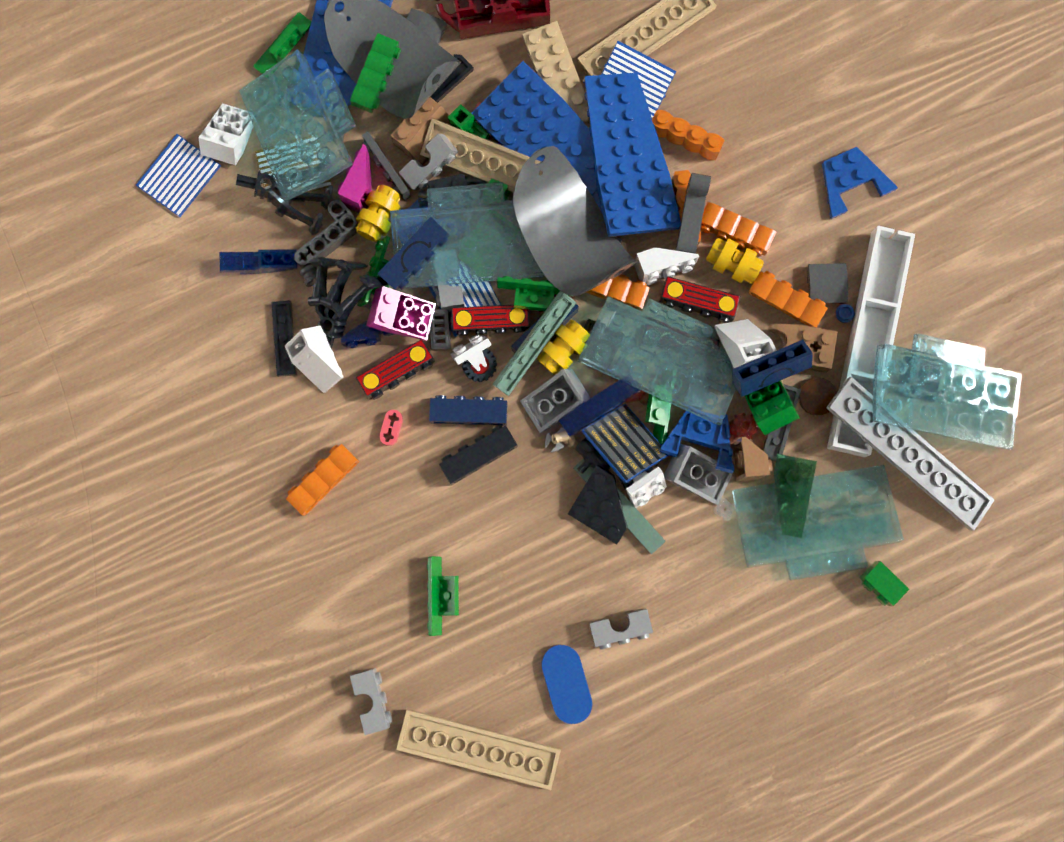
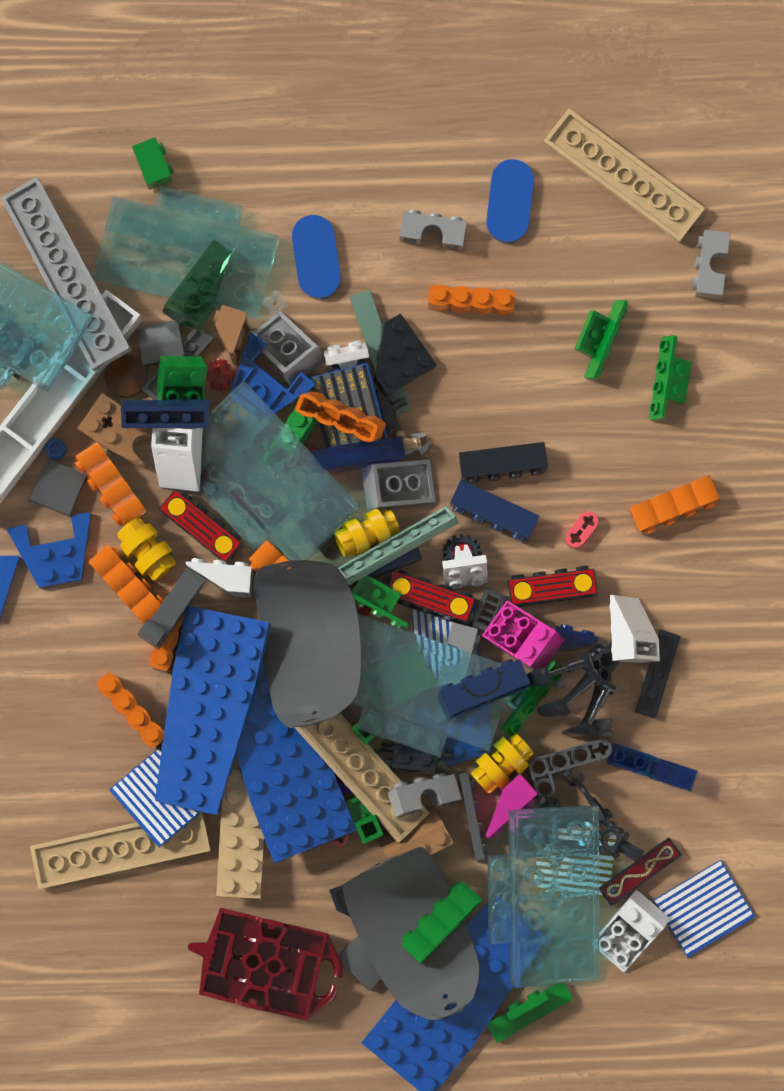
camera: 155 degrees left, 0 degrees up
(230, 191) = (639, 871): none -> tile
(367, 584) = (670, 379): none -> green bracket
(568, 578) = (479, 300): none -> orange brick
(631, 429) = (345, 419): none -> orange brick
(708, 563) = (316, 256): none -> blue tile
(802, 225) = (55, 561): none -> blue wing
(803, 434) = (158, 341): none -> dark grey slope

